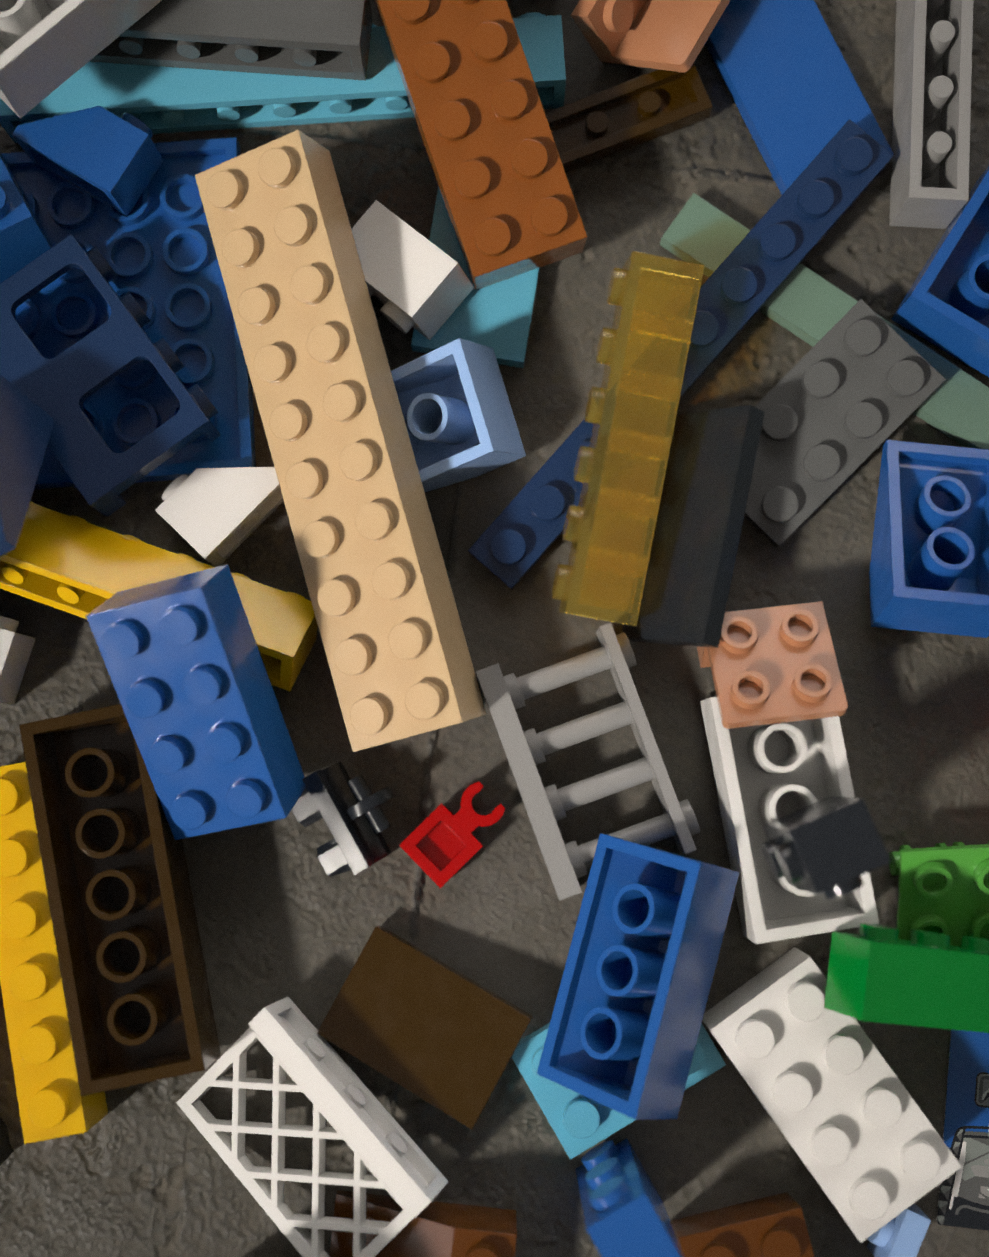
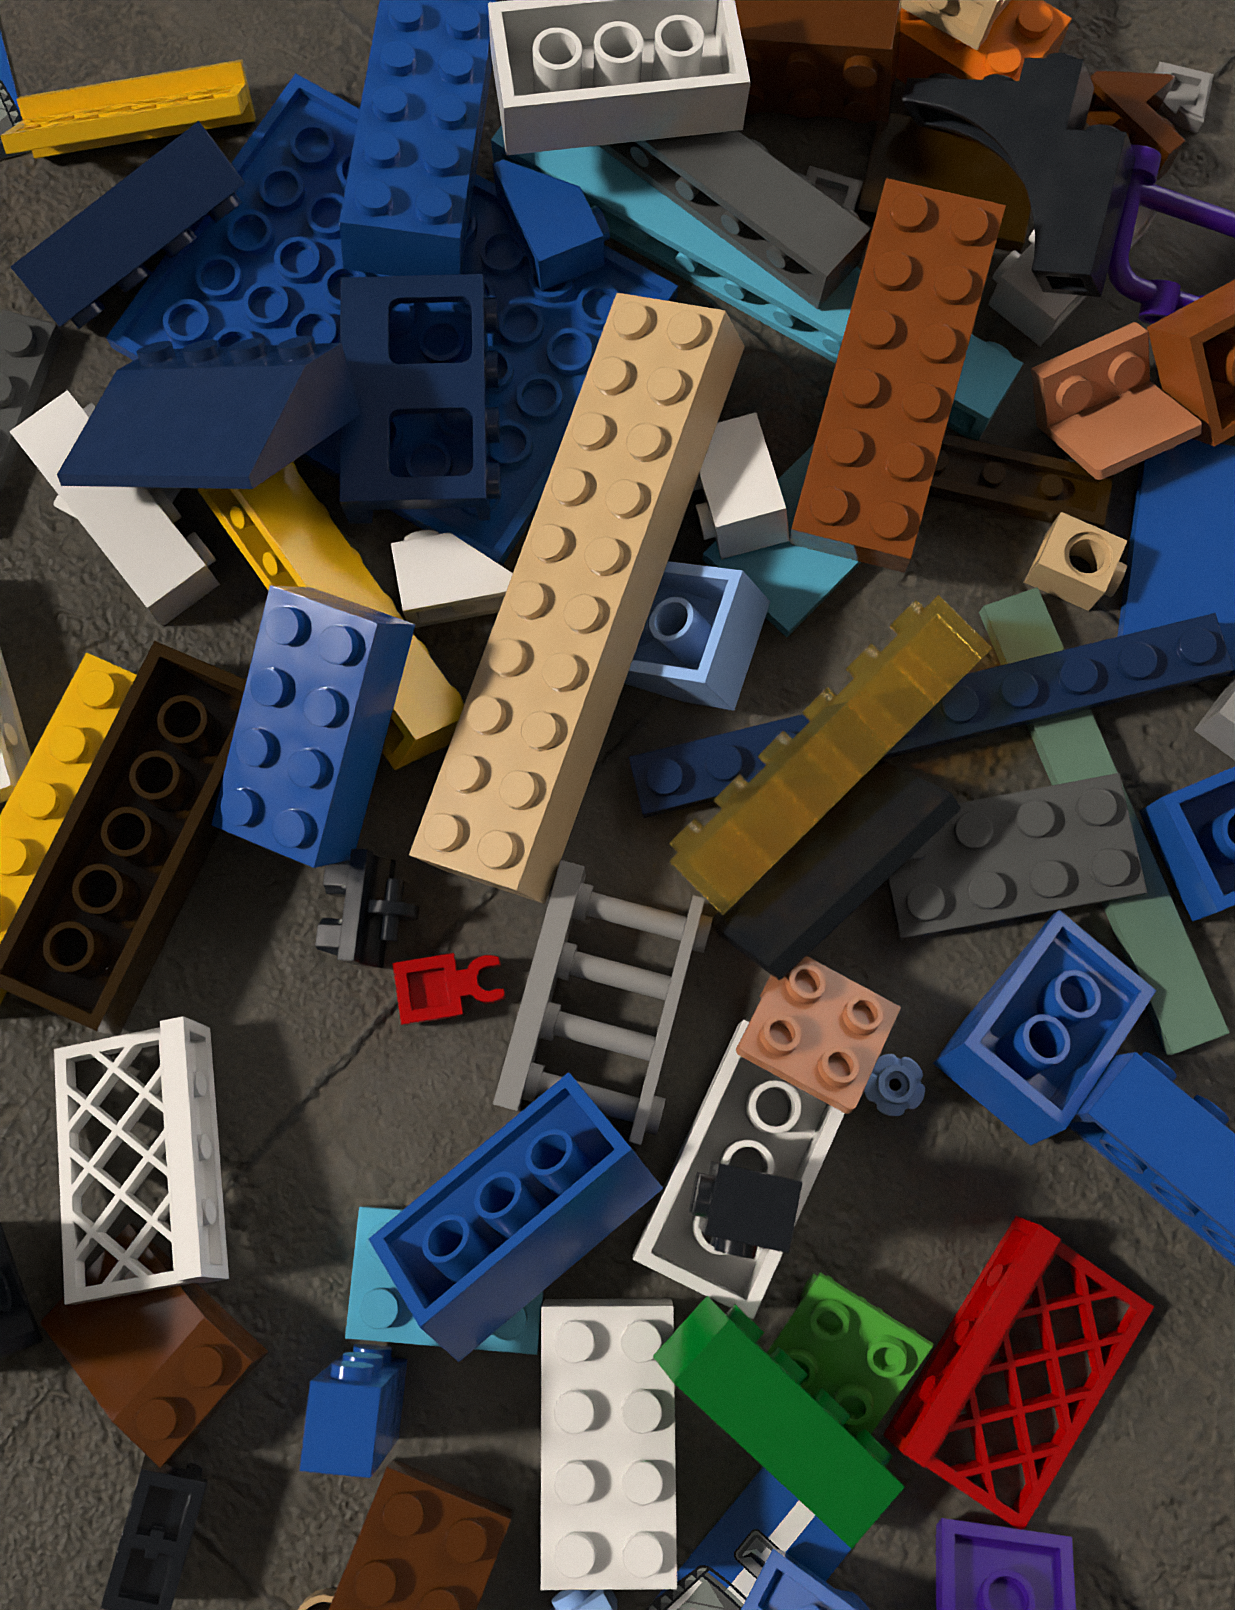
camera: 30 degrees right, 5 degrees down
(425, 1026) = (305, 1134): dark brown tile -> none
(697, 170) = (1056, 575): none -> tan brick
(868, 662) = (910, 1091): none -> light blue plate

